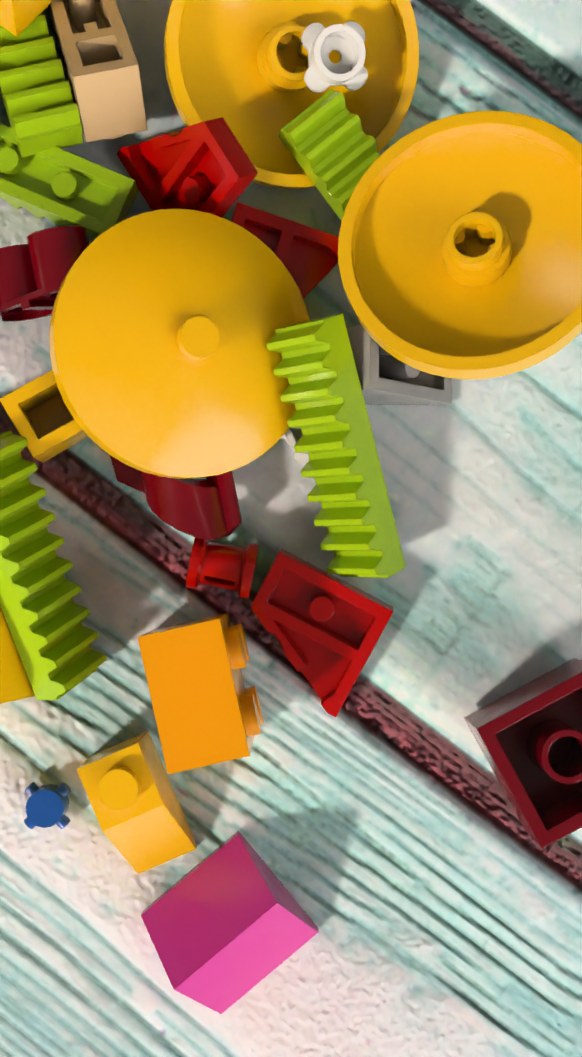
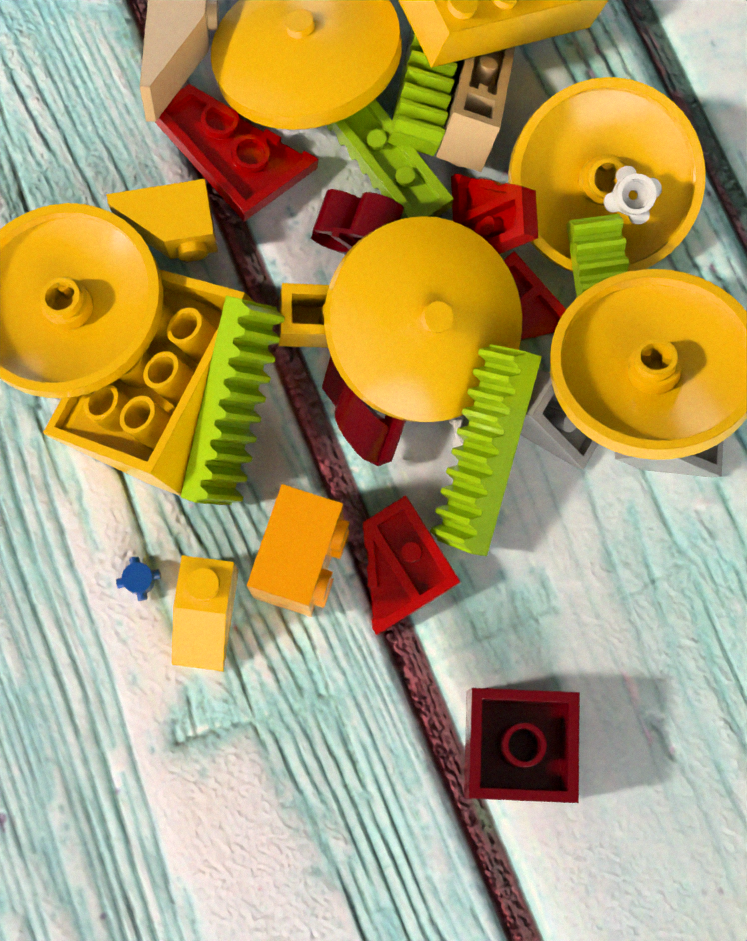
camera: 20 degrees right, 10 degrees down
(222, 566) = (360, 484): red bush -> none
(226, 926) = (212, 739): dark pink slope -> none

